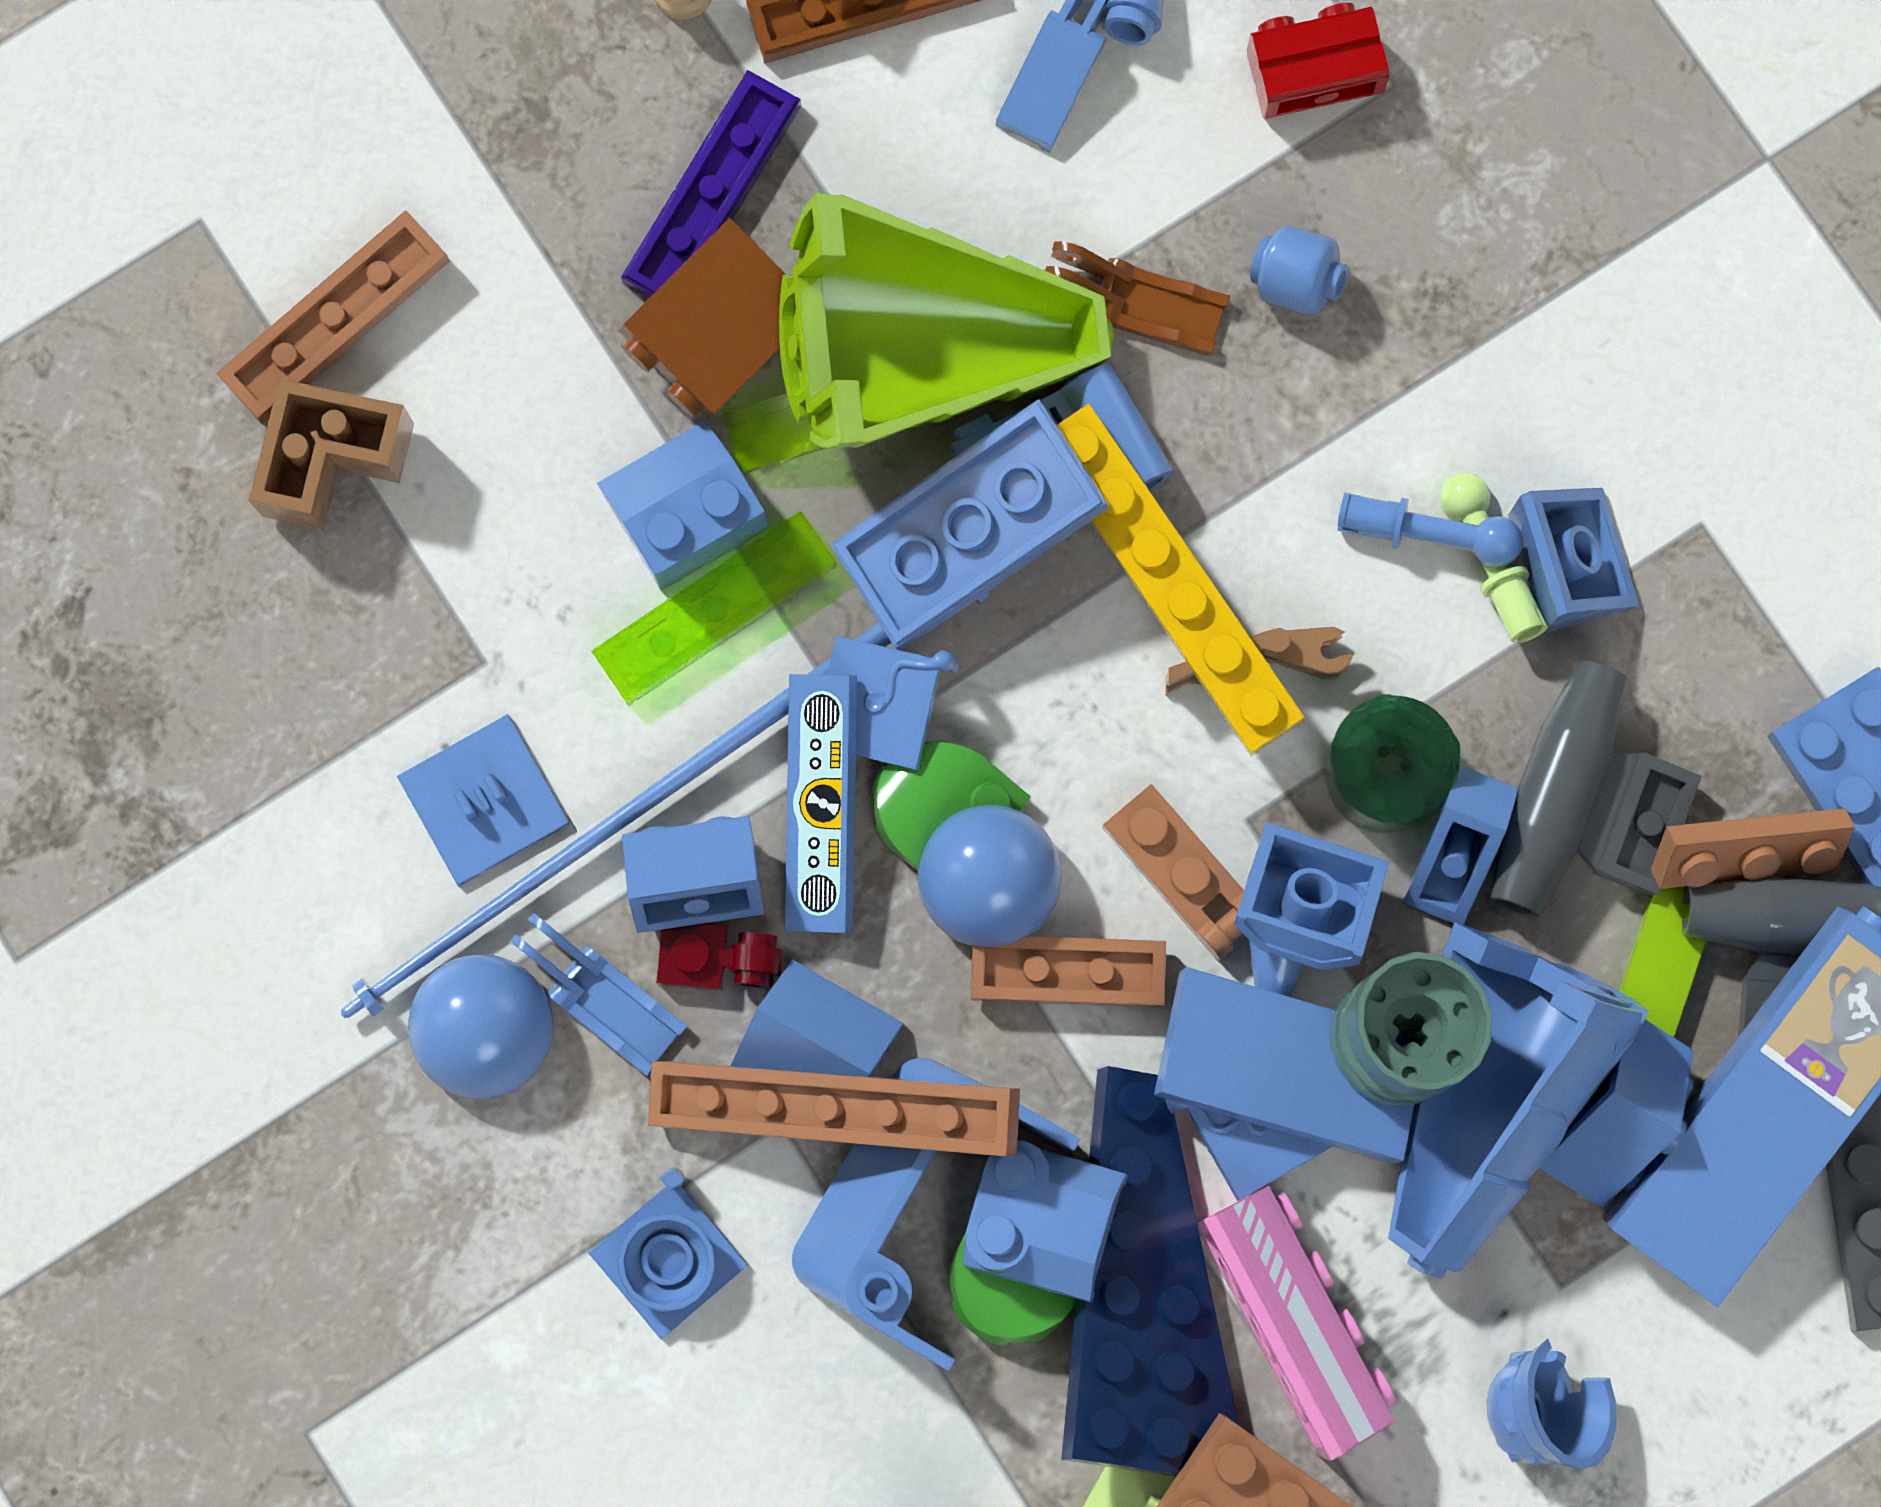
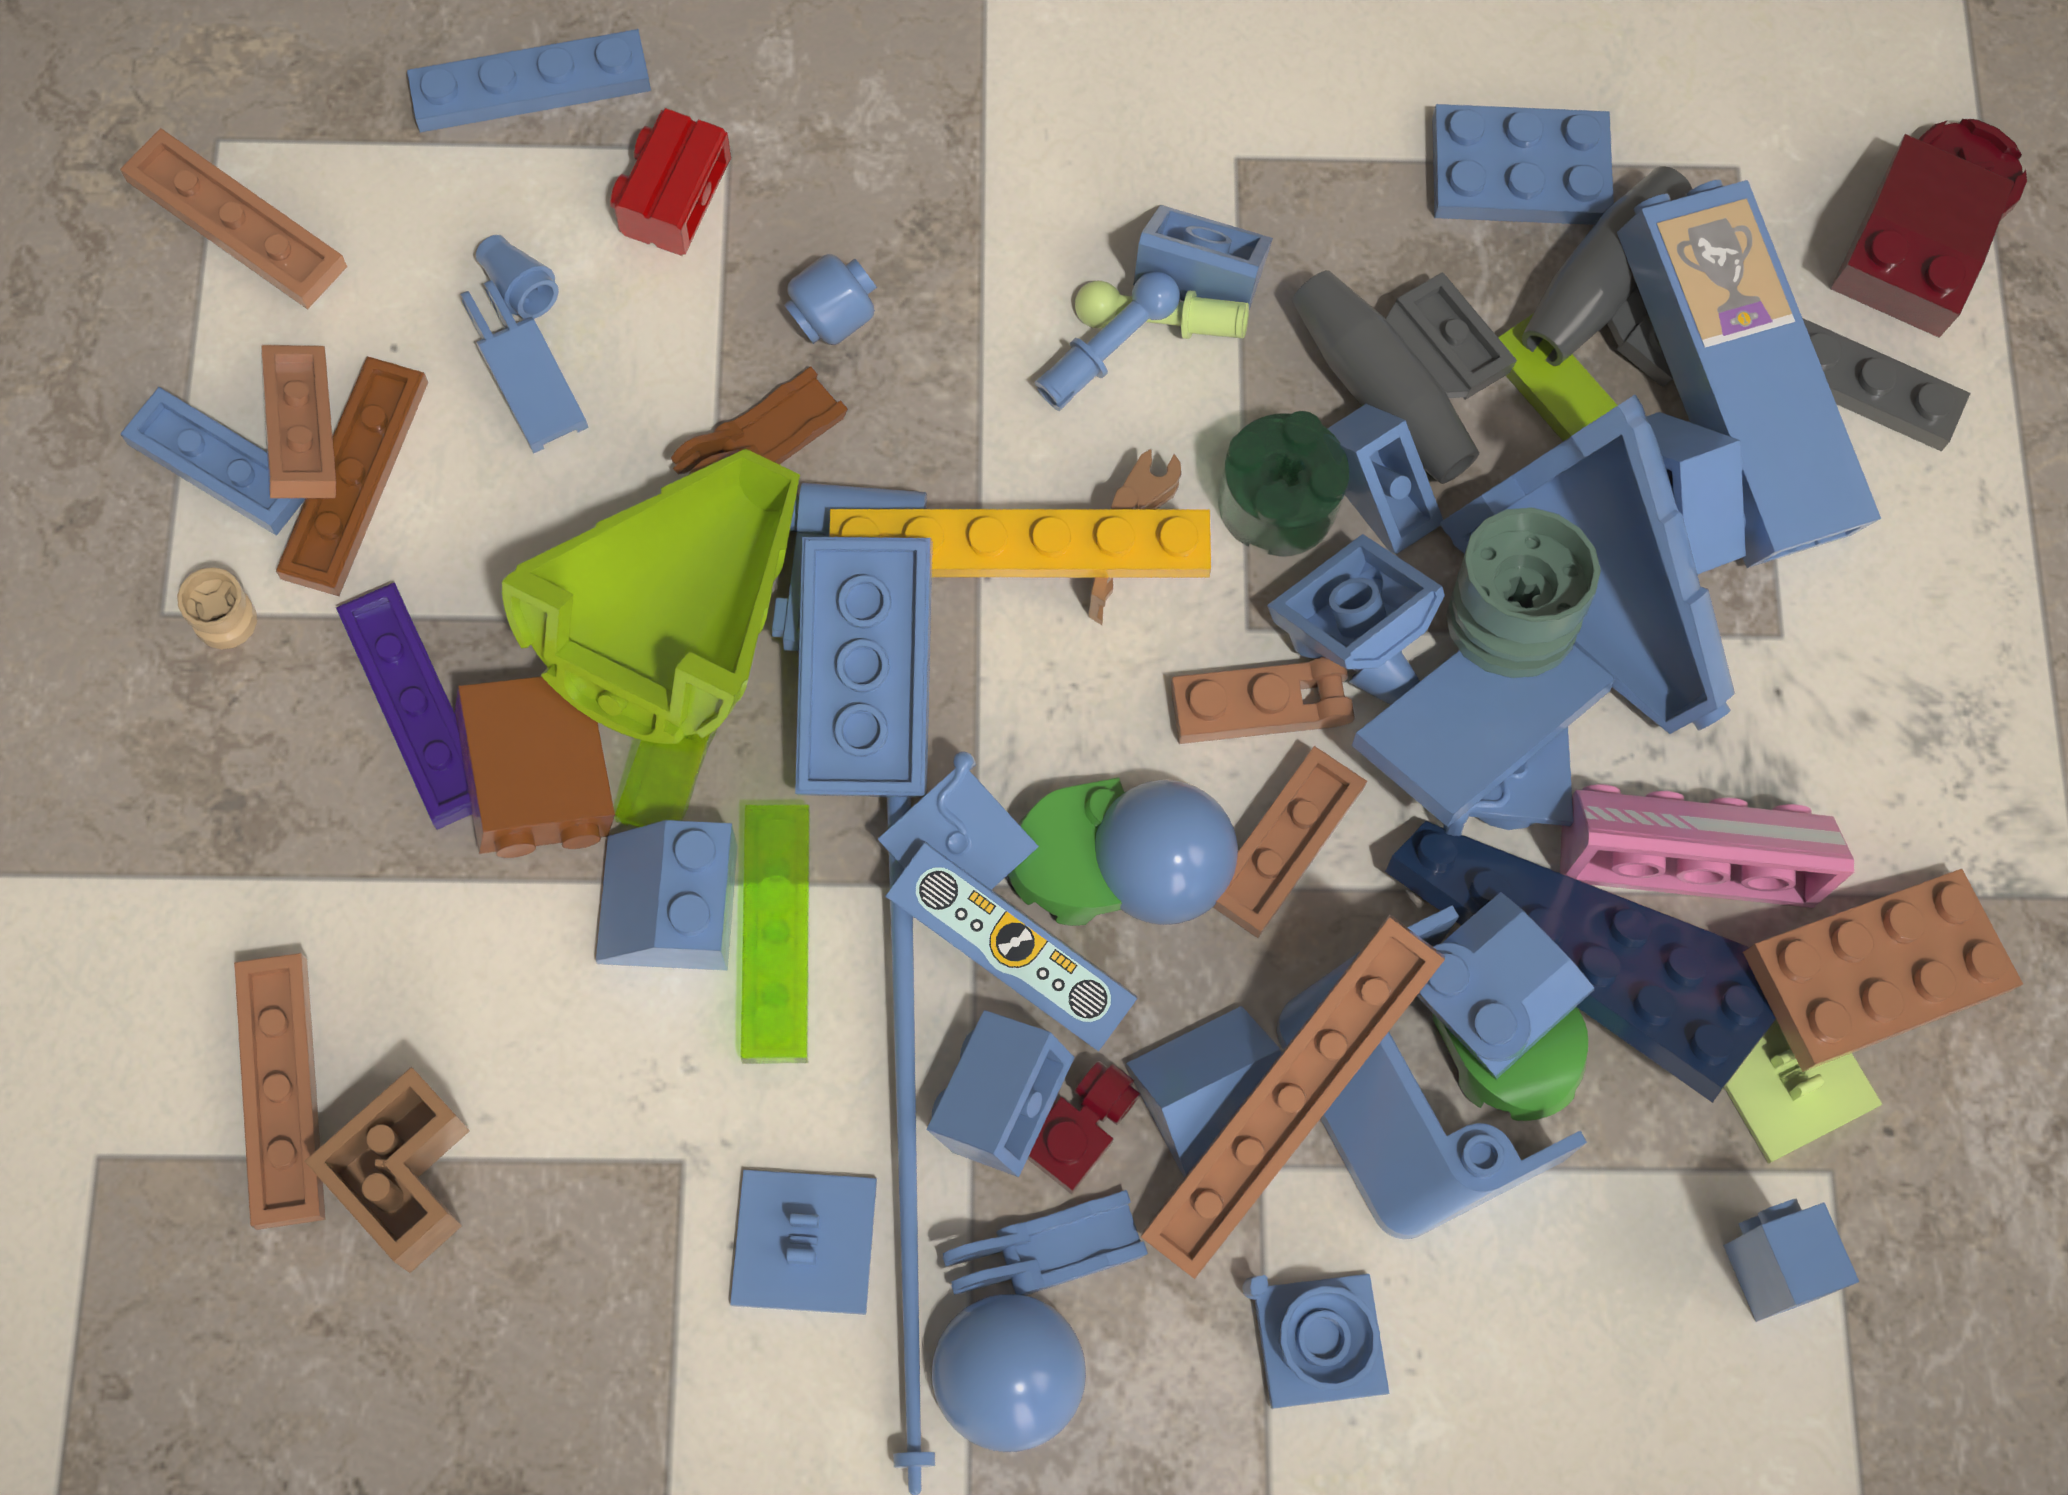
camera: 65 degrees left, 10 degrees down
(1540, 1416) = (1896, 708): medium blue helmet -> none
(1752, 848) = (1527, 269): nougat plate -> none

